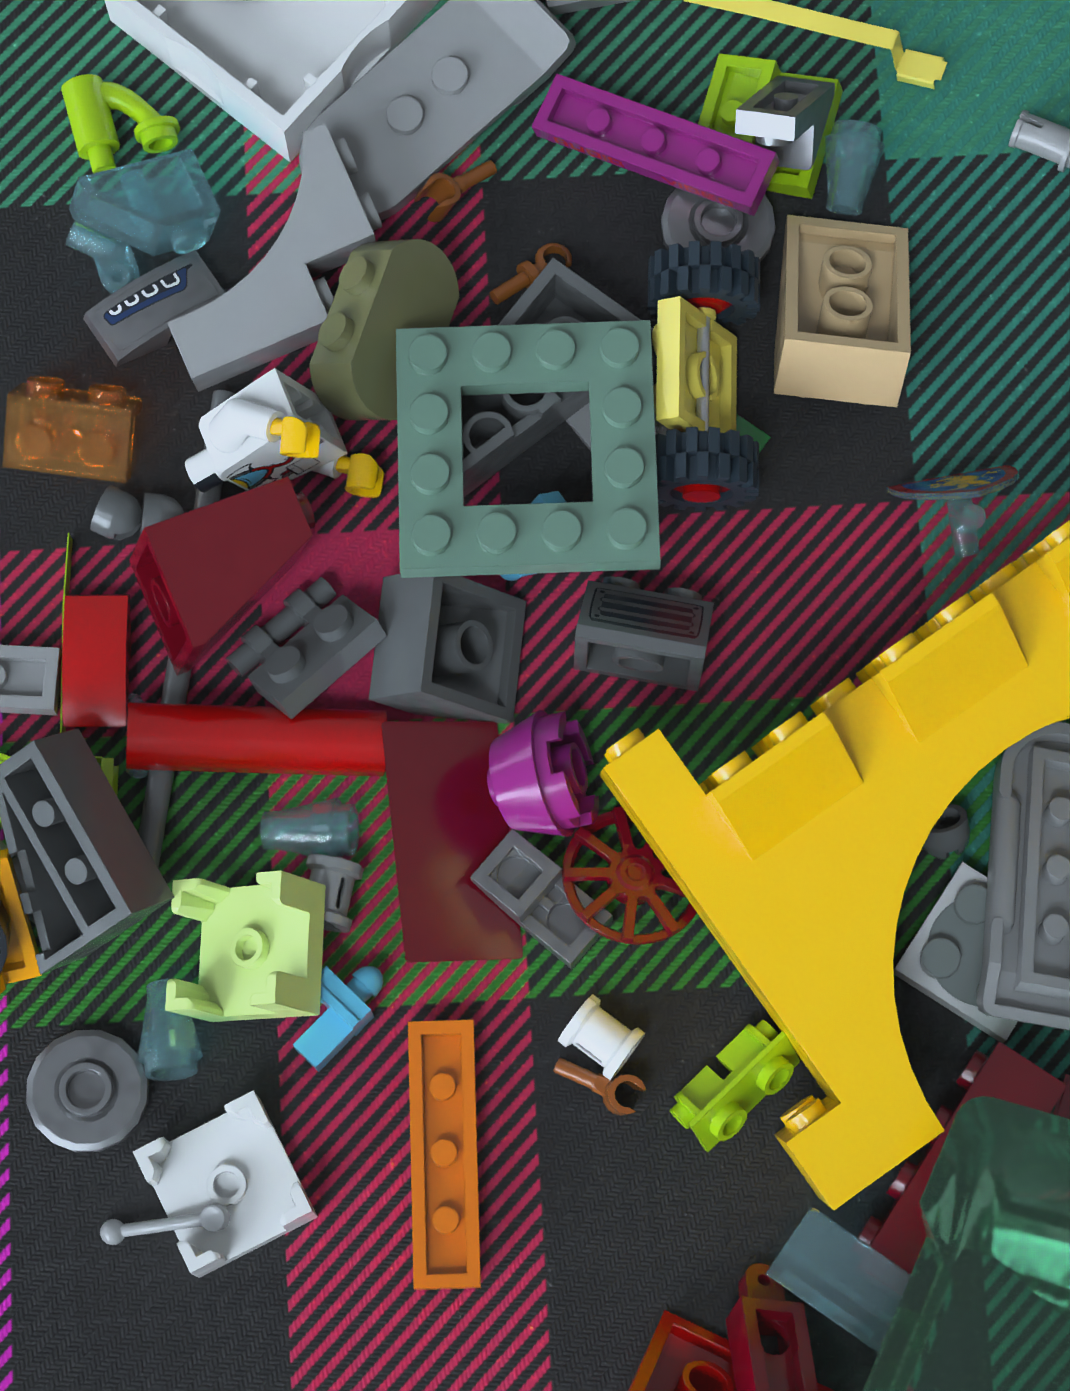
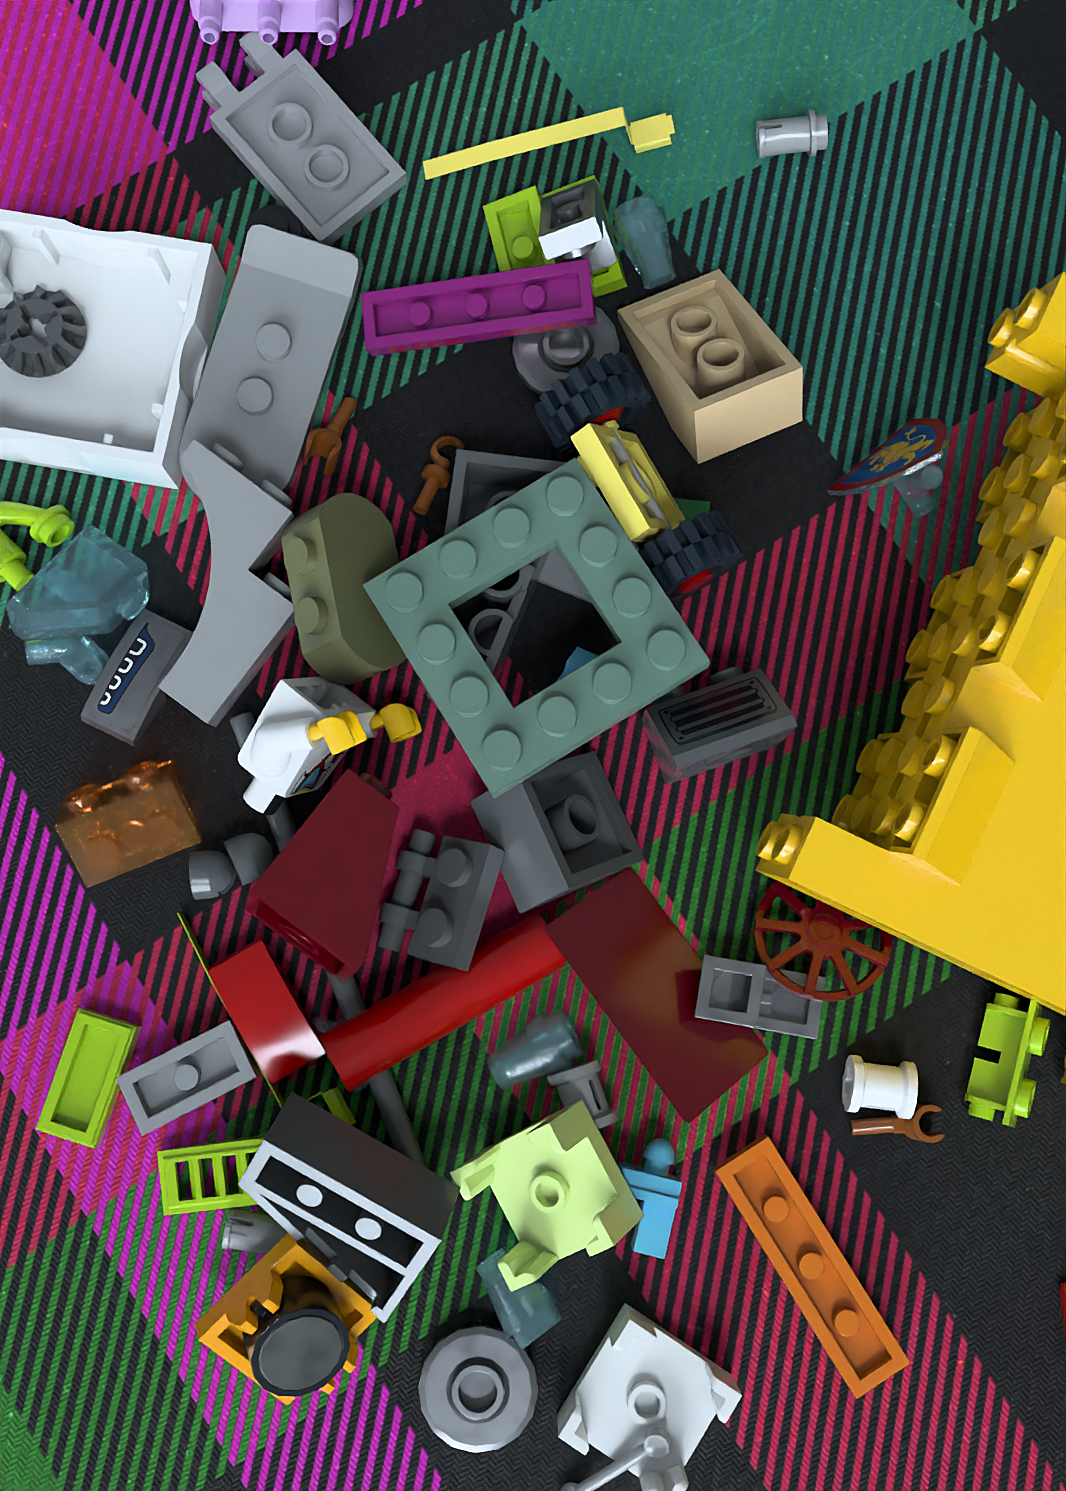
camera: 30 degrees left, 5 degrees up
(542, 775) = (705, 897): magenta cone -> none

